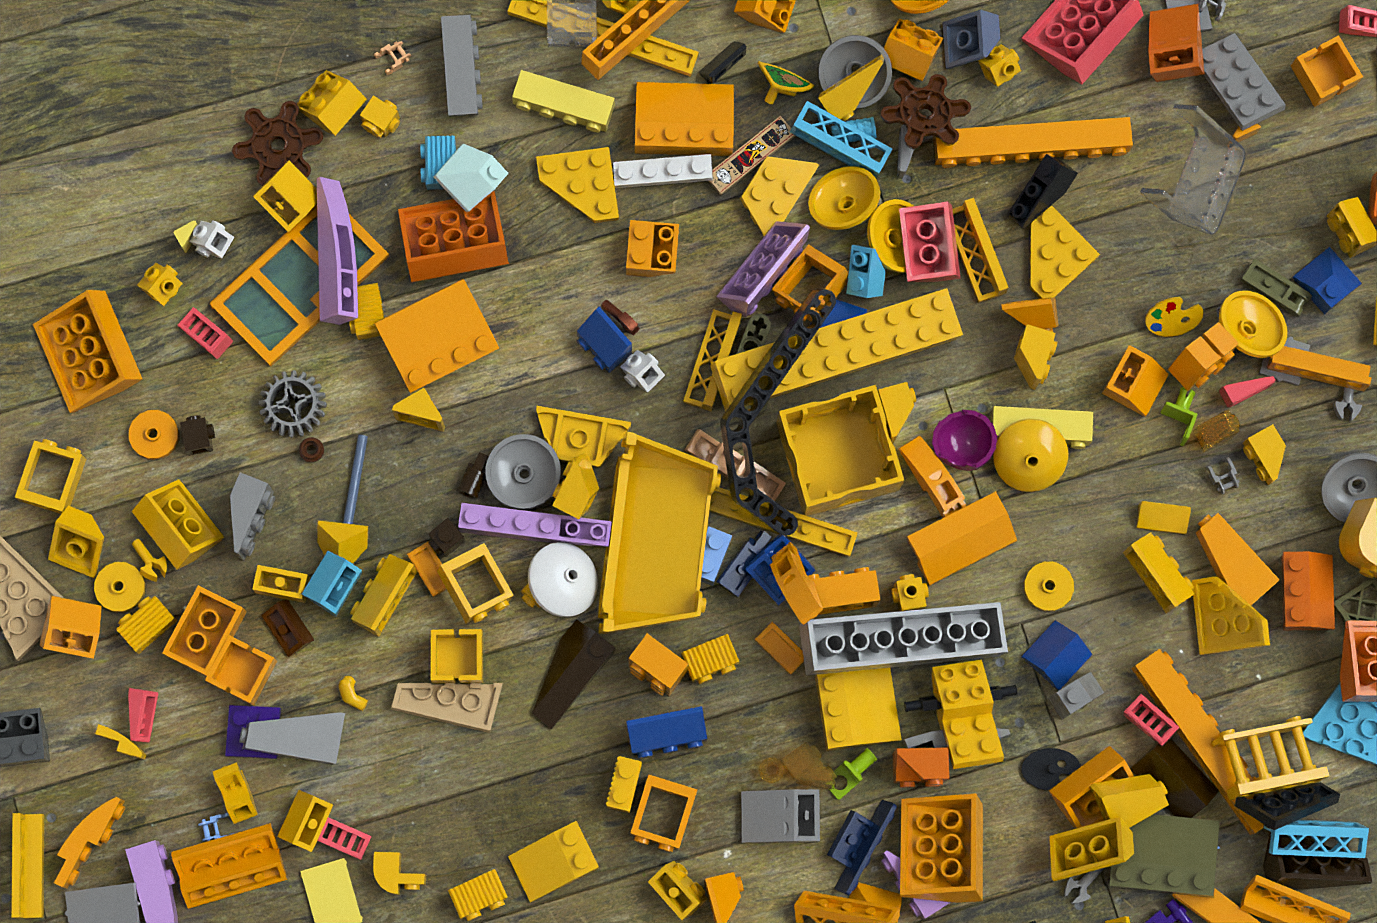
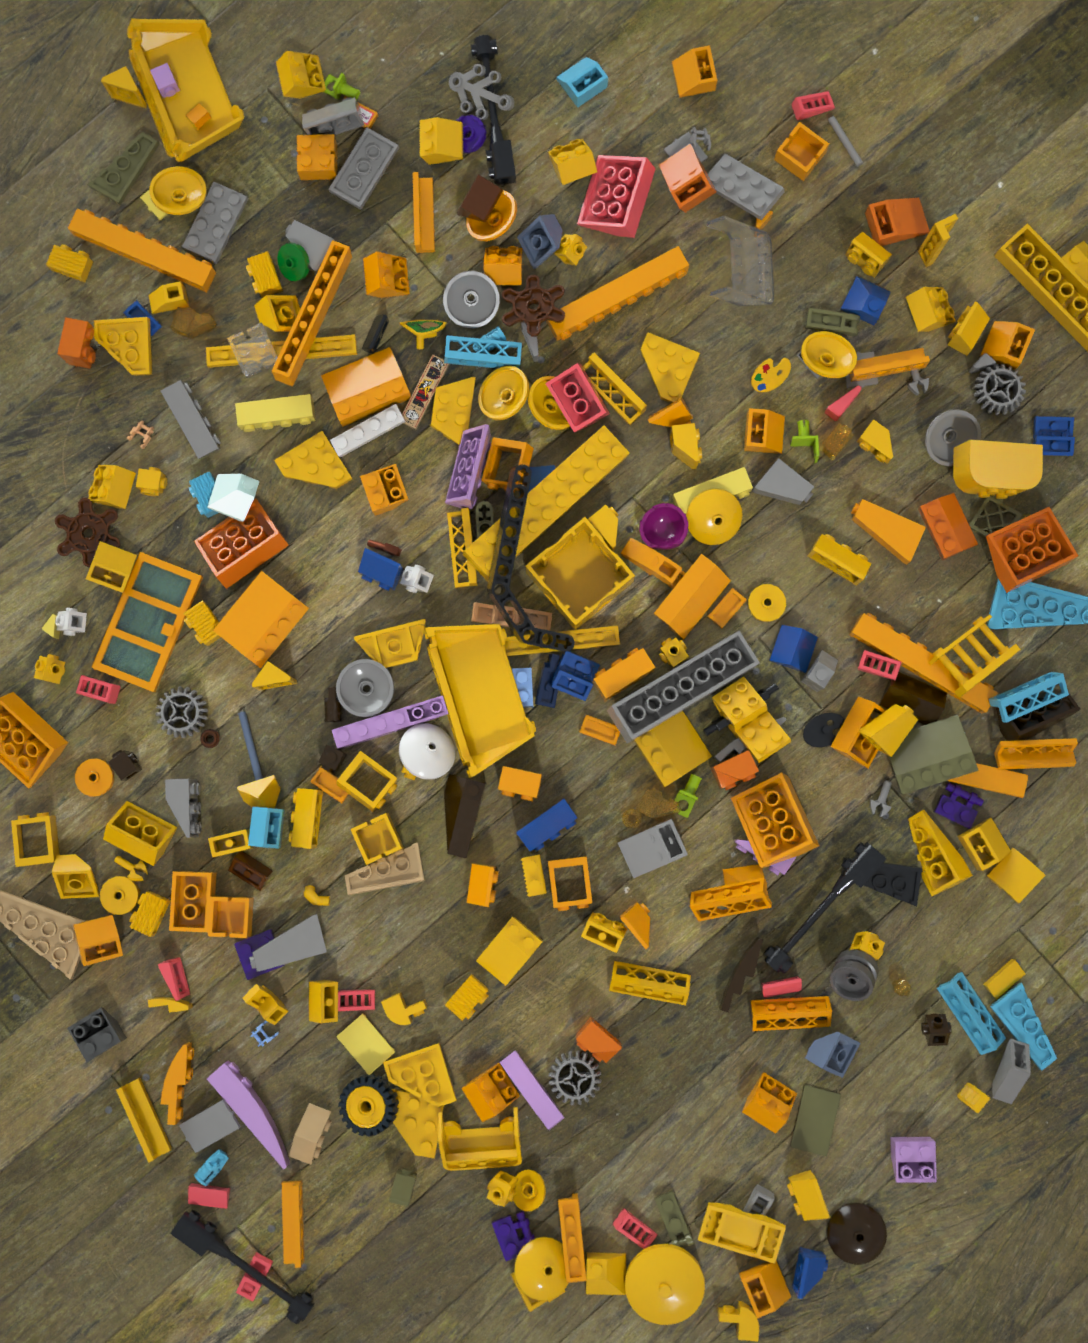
camera: 10 degrees left, 5 degrees up
(229, 865) = (285, 1055): light orange slope -> none
(336, 255) = (163, 594): lavender slope -> none
(556, 767) = (481, 885): none -> light orange slope
(578, 488) = (409, 683): yellow slope -> none
(710, 659) = (554, 760): yellow brick -> none
(795, 584) = (590, 683): light orange slope -> none
(846, 94) = (472, 318): yellow slope -> none
(857, 842) = (713, 842): dark blue bracket -> none
(865, 273) = (542, 440): medium azure slope -> none
(998, 571) = (727, 608): none -> light orange tile
(1042, 190) = (640, 324): black slope -> none
(1090, 848) = (878, 776): yellow slope -> none
(1132, 454) = (784, 484): none -> light grey slope
(1163, 517) = (825, 519): yellow slope -> none
(1204, 357) = (805, 393): light orange piece -> none
(1216, 479) = (858, 467): light grey piece -> none
(1226, 619) = (901, 571): yellow plate -> none
(1288, 805) = (1002, 683): black wing -> none

